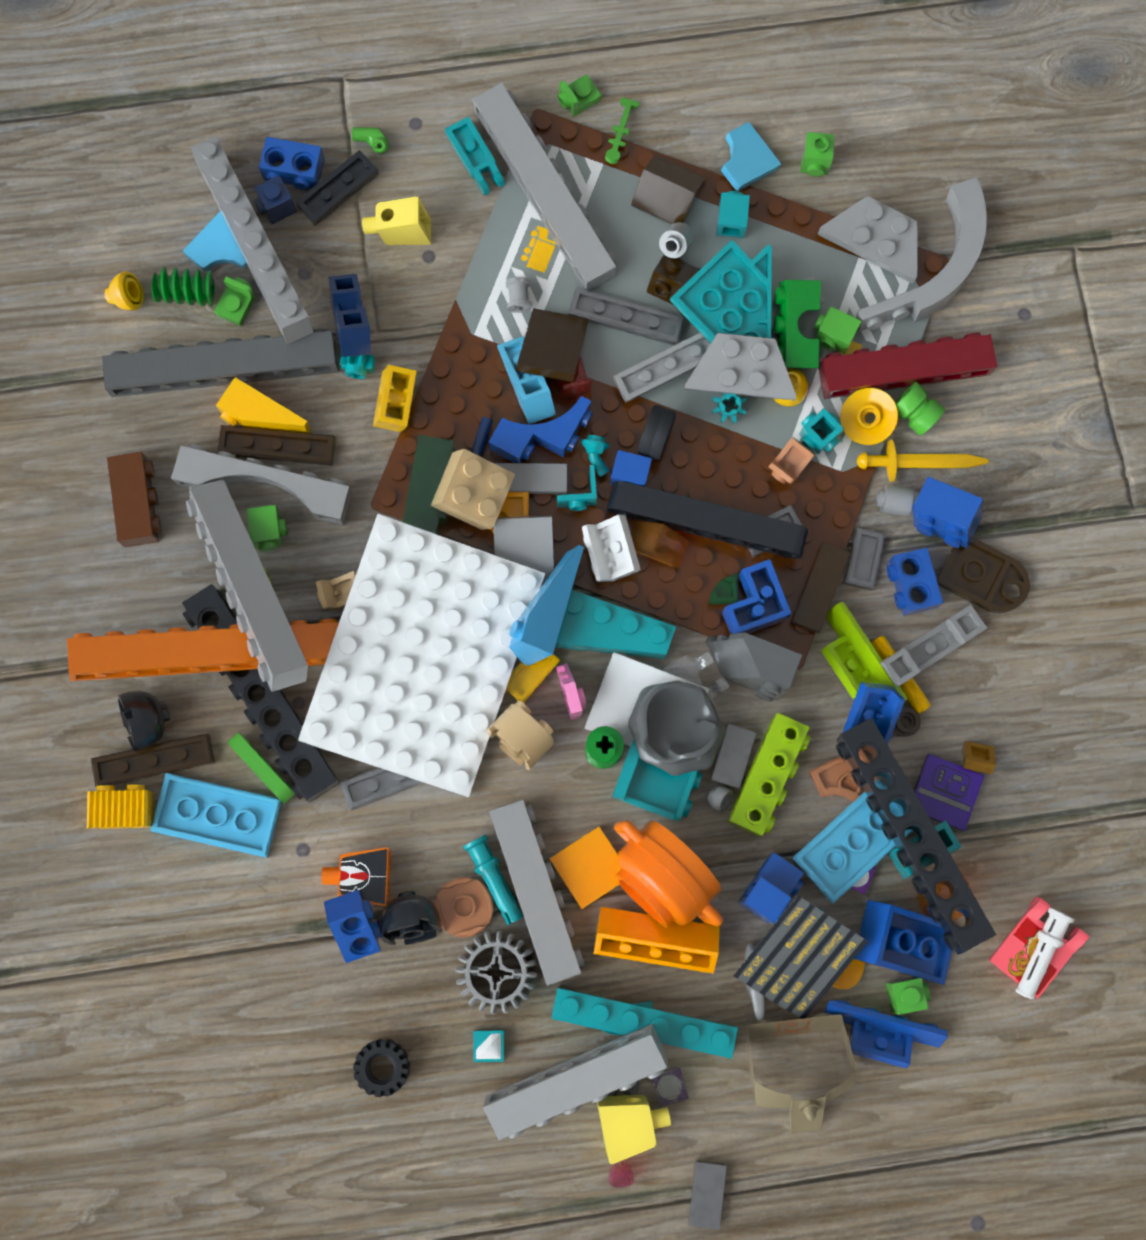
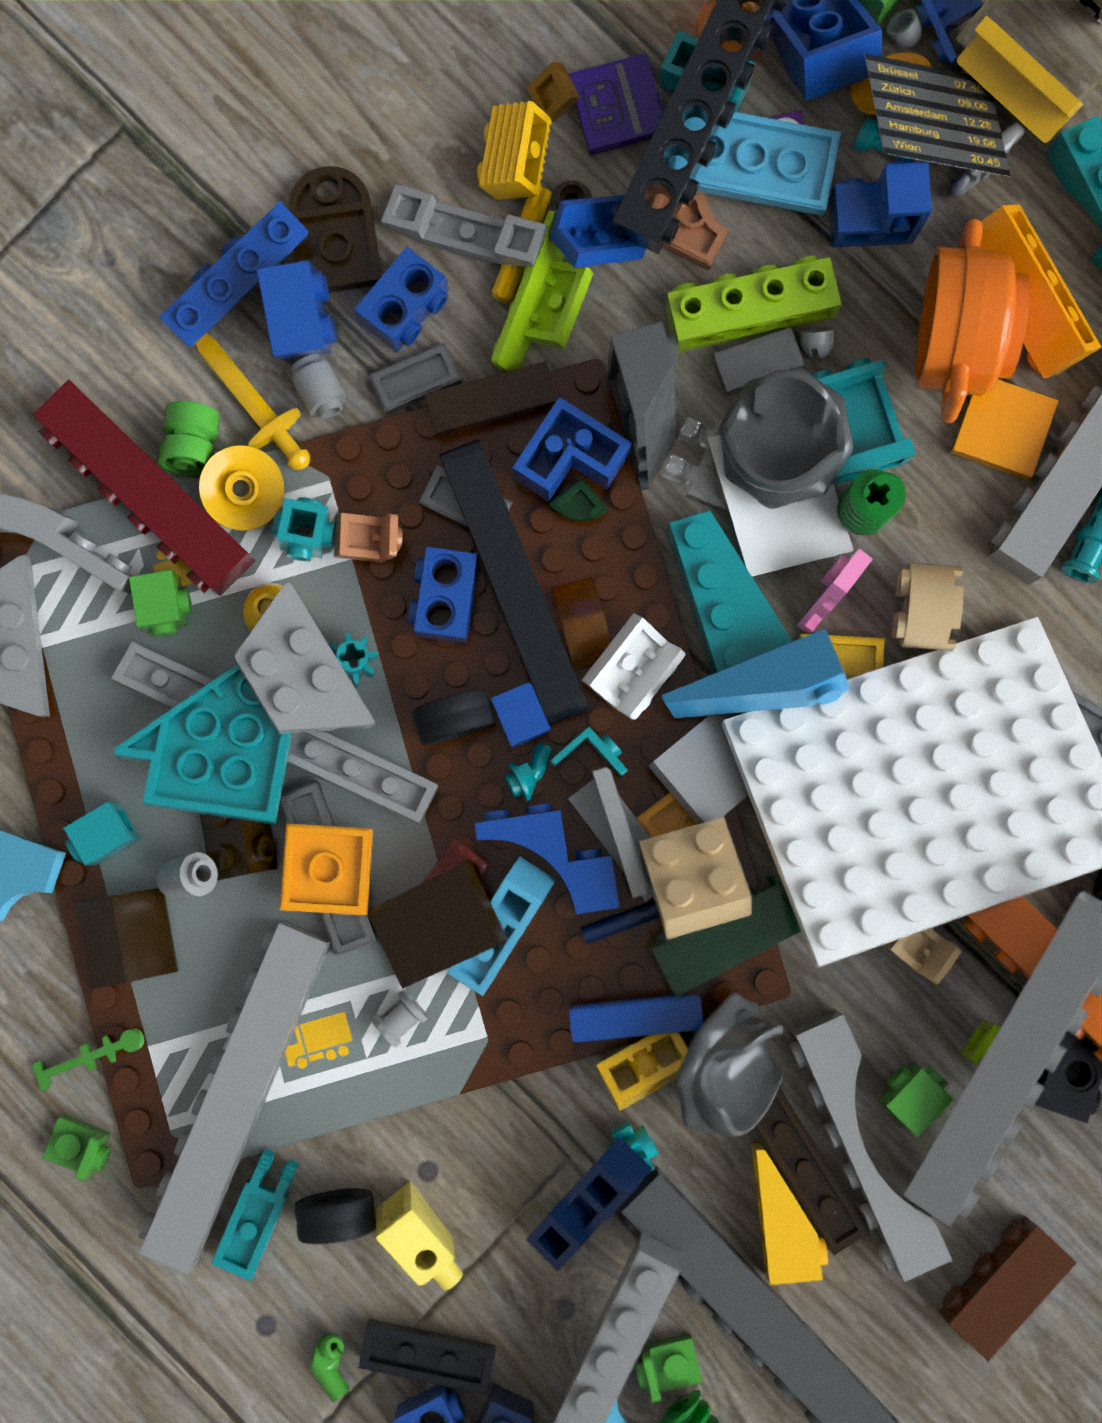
camera: 120 degrees left, 5 degrees up
(360, 435) = (729, 1071): none -> dark grey piece
(424, 410) = (635, 1017): none -> blue slope
(444, 190) = (335, 1216): none -> black tyre
(531, 473) = (620, 832): none -> light grey tile
(625, 313) = (326, 869): none -> light orange tile
(721, 484) = (456, 595): none -> blue brick
(787, 1027) = (1018, 81): none -> yellow panel
(792, 300) = (164, 672): green arch -> none
(870, 996) = (905, 28): none -> light grey hinge
(957, 706) = (514, 151): none -> yellow brick
(994, 489) = (234, 275): none -> blue bracket

